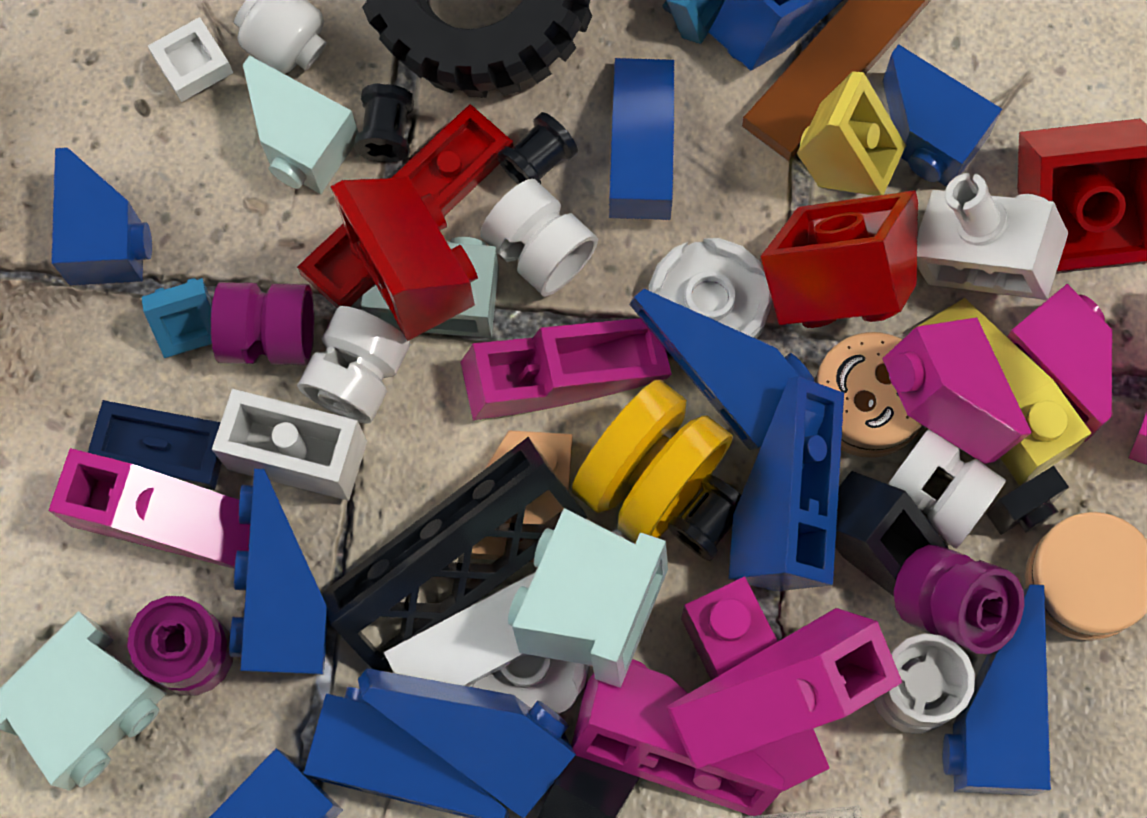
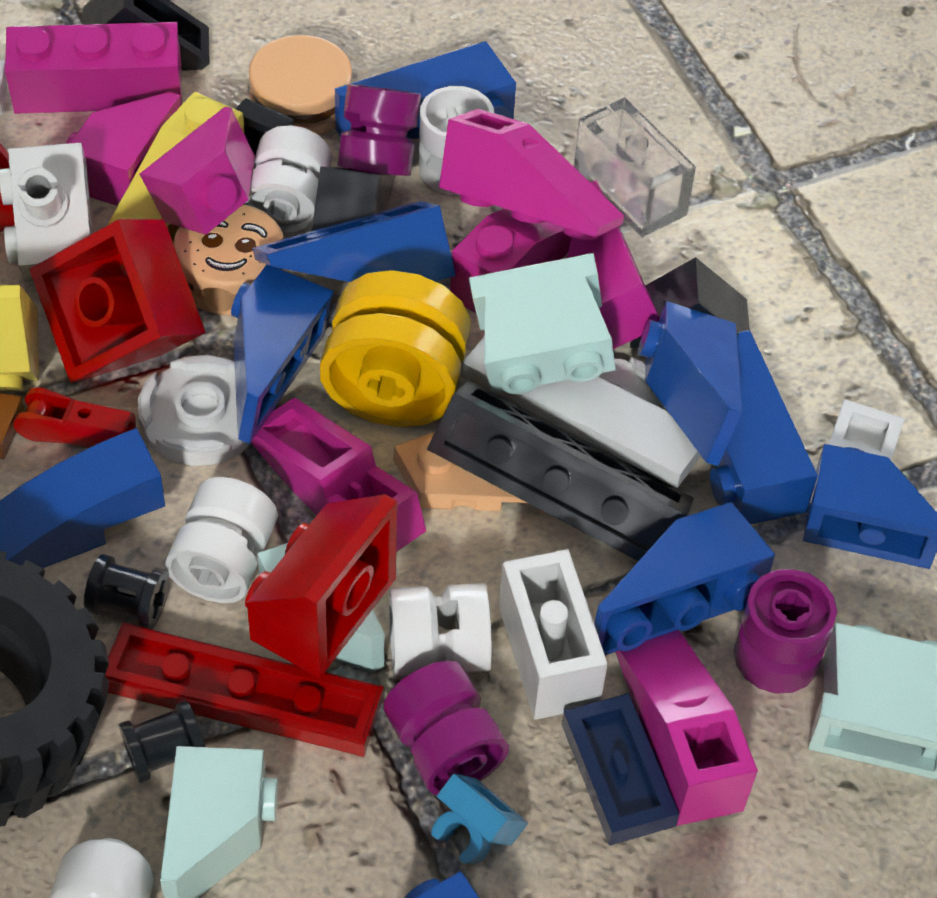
camera: 125 degrees left, 20 degrees down
(738, 191) = (69, 421): none -> red bar

